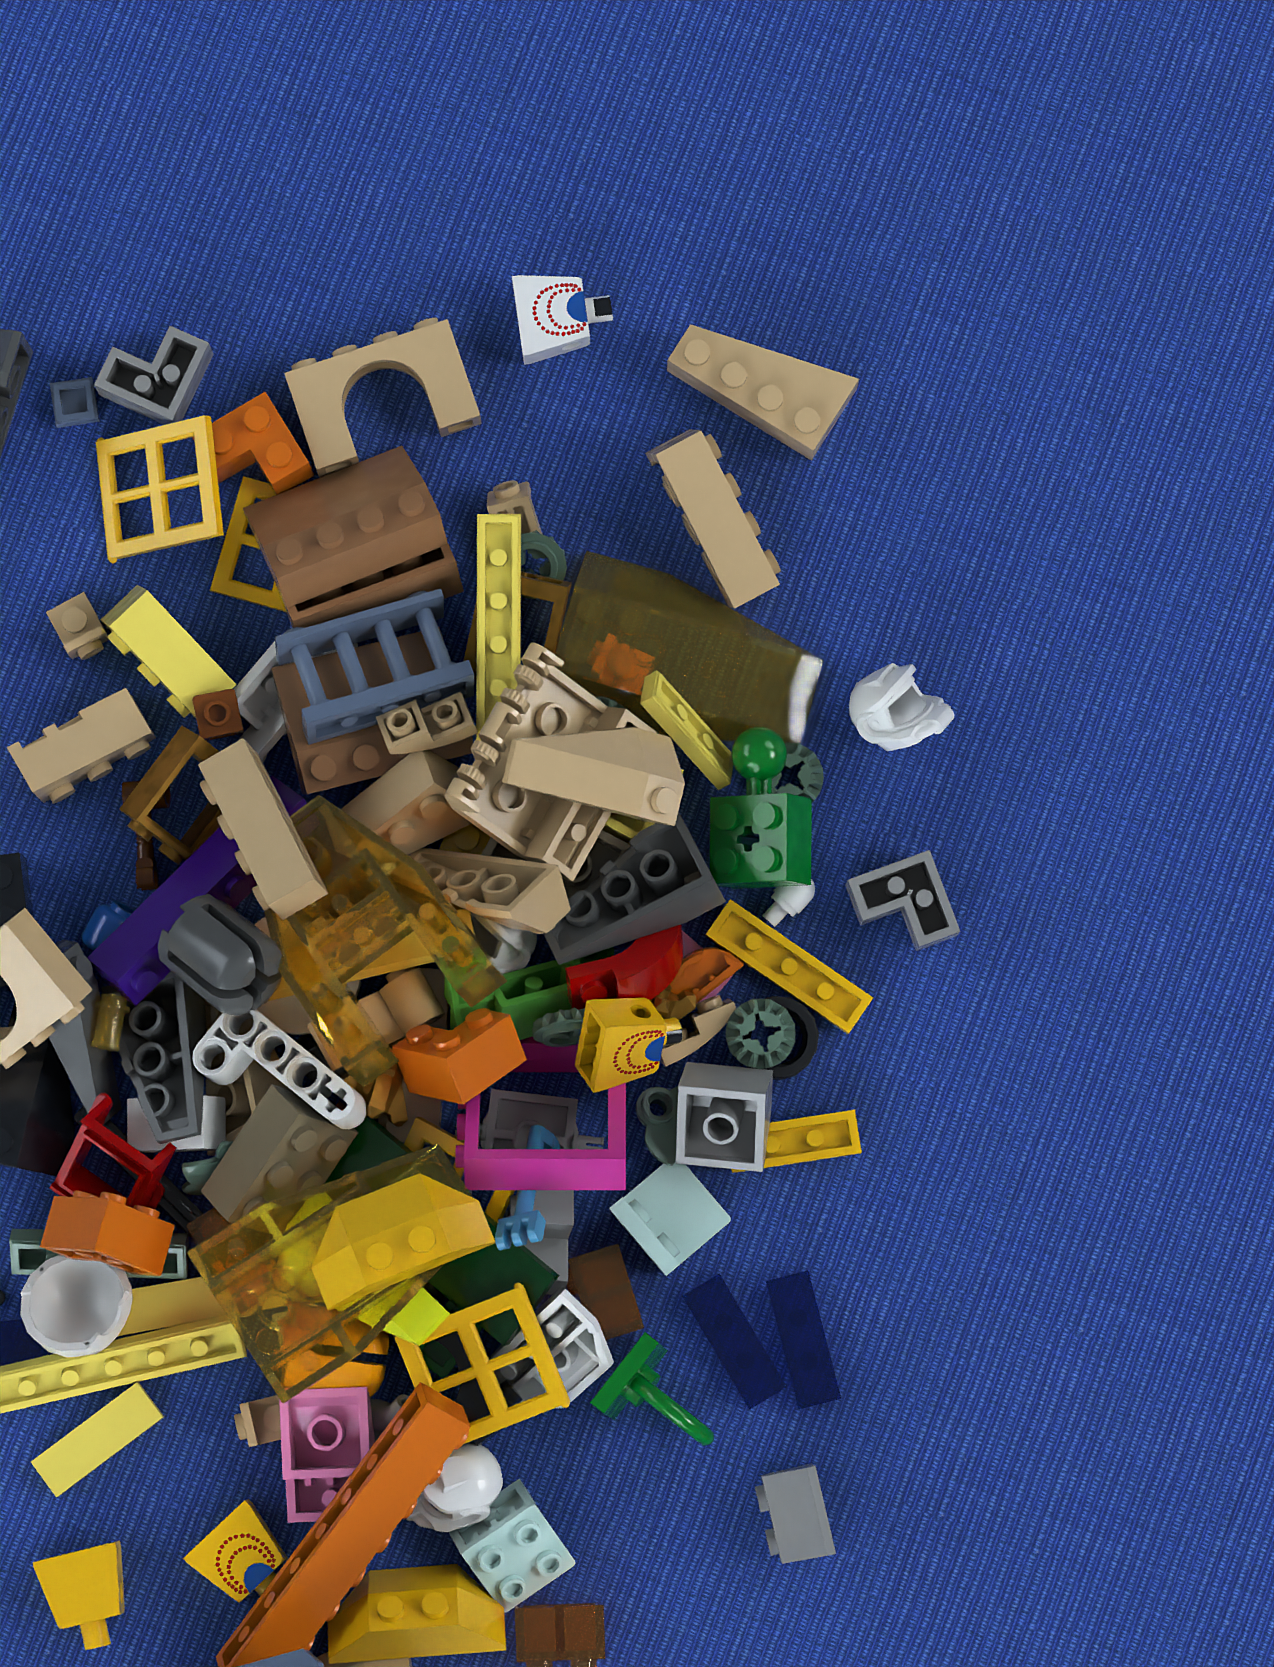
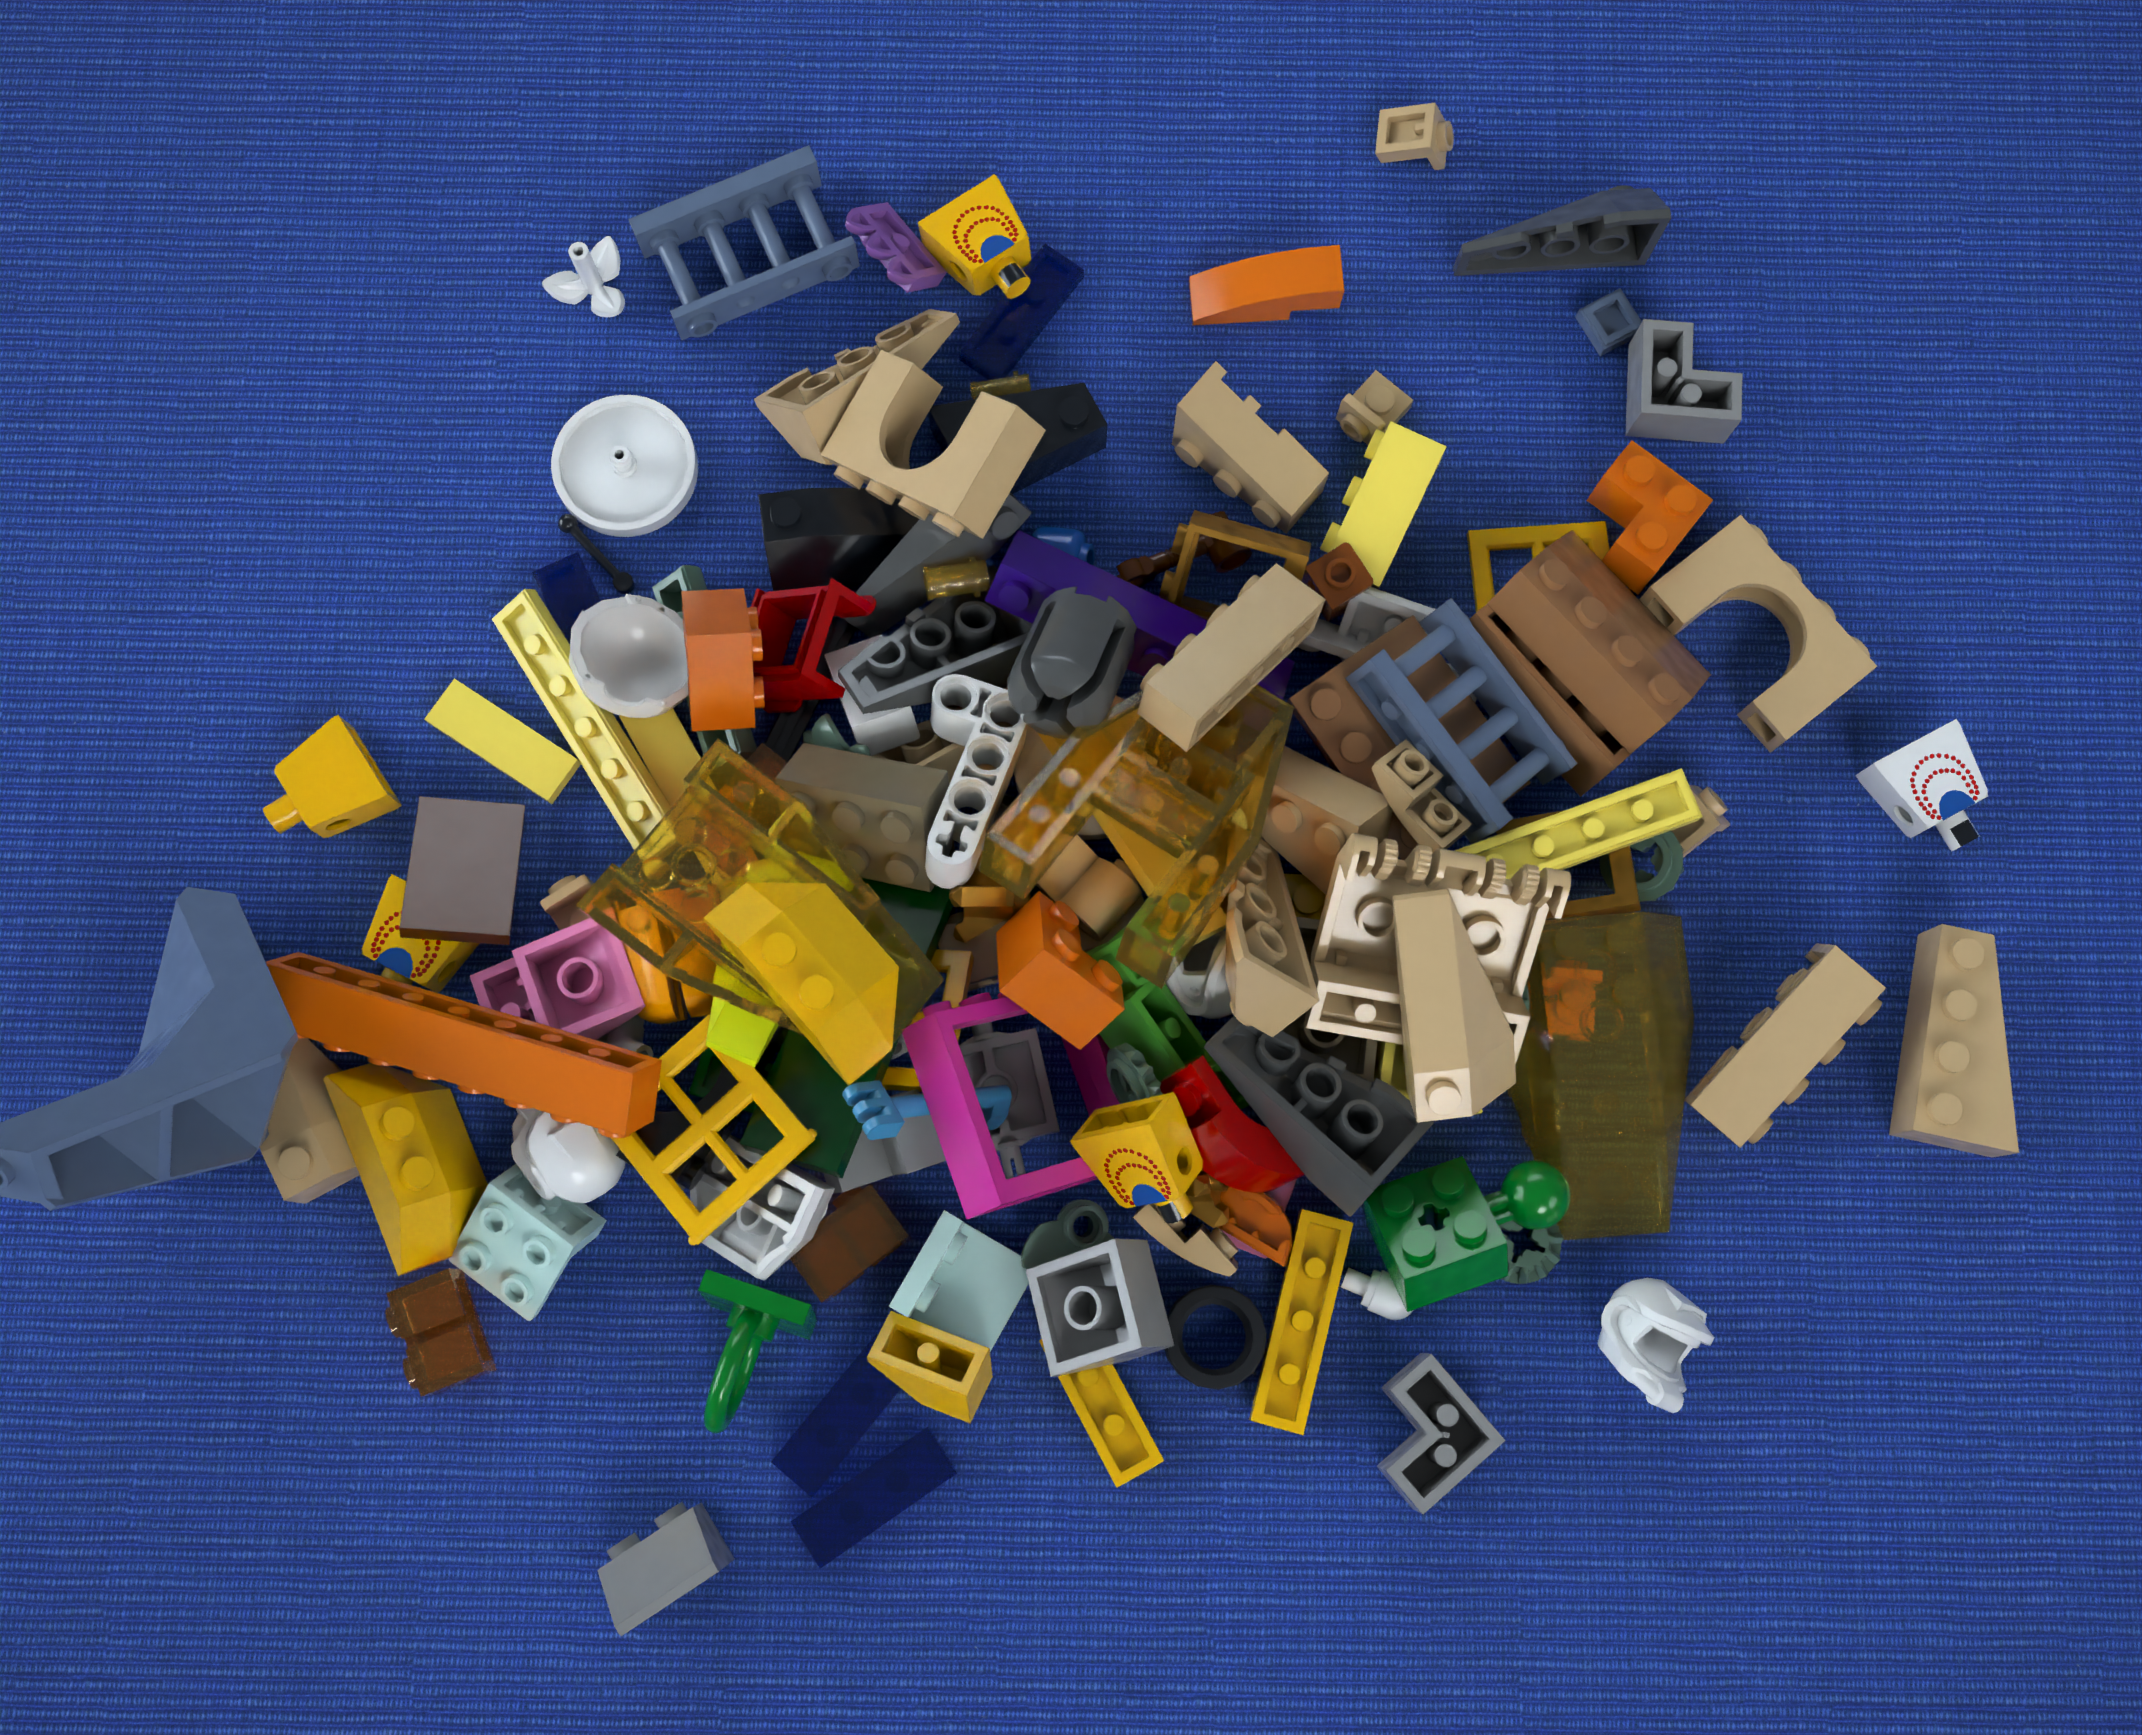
camera: 70 degrees right, 5 degrees down
(158, 486) = (1605, 405): yellow window -> none
(200, 1499) = (463, 871): none -> tile
(687, 729) = (1530, 1099): light yellow tile -> none
(722, 1259) = (933, 1365): none -> yellow slope
(749, 1051) = (1186, 1310): sand green gear -> none

